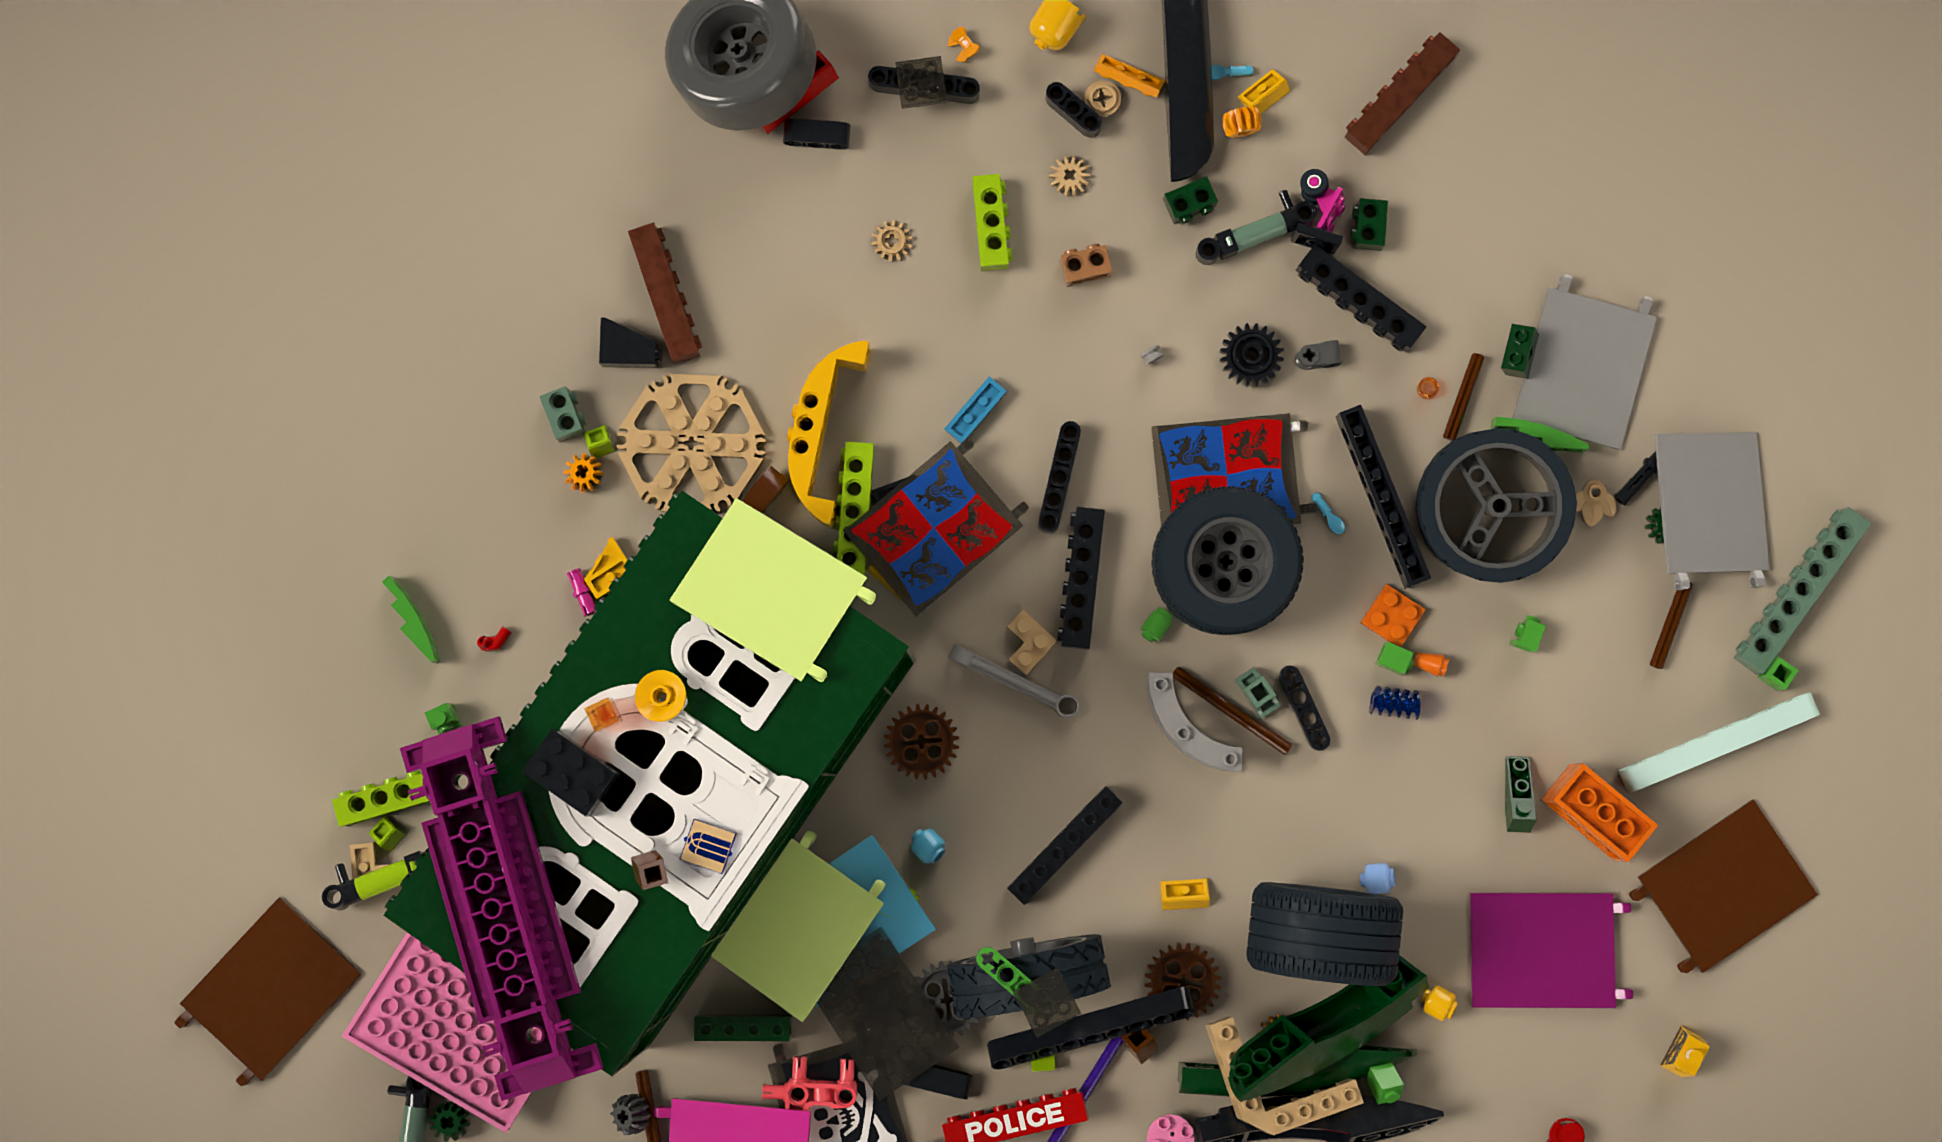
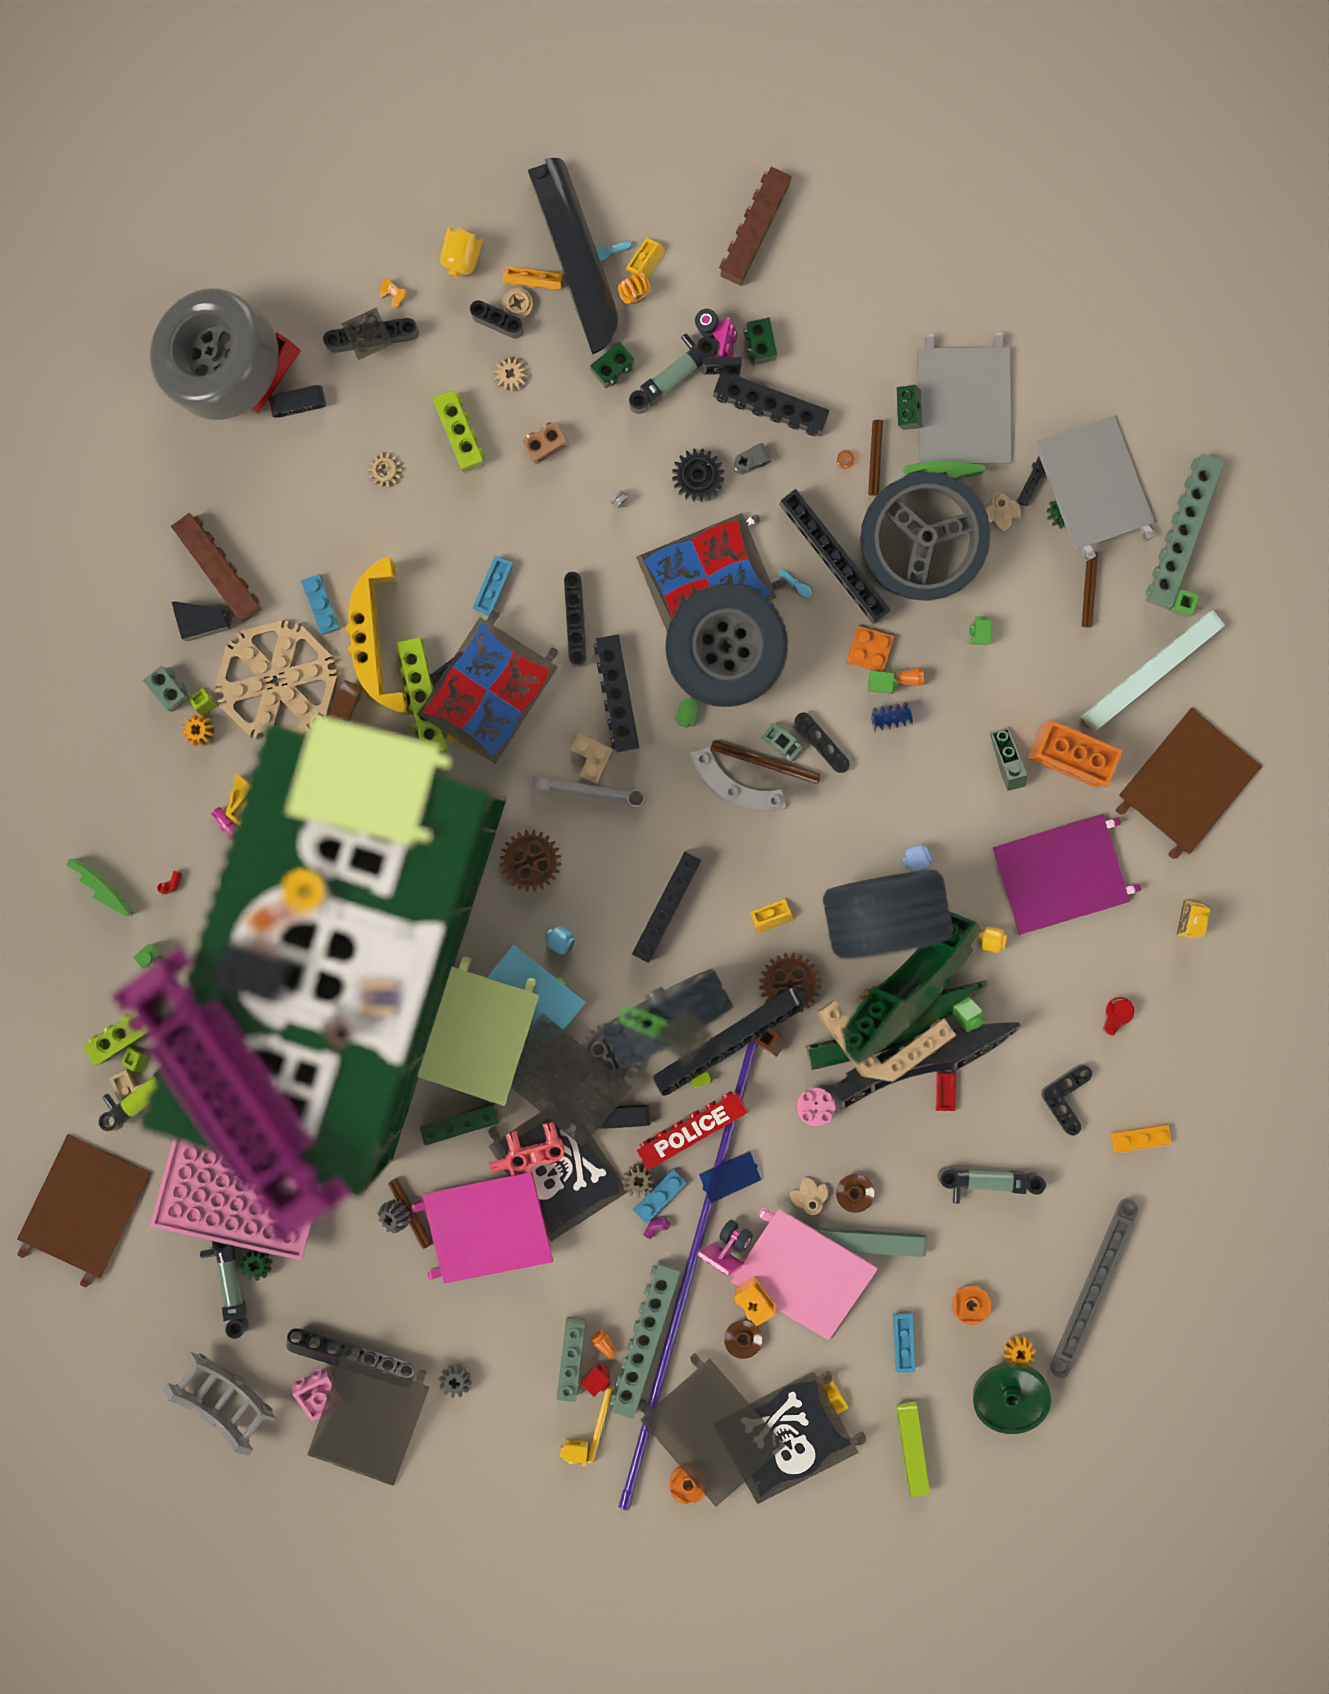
camera: 20 degrees left, 5 degrees up
(770, 371) = (320, 604): none -> dark azure plate

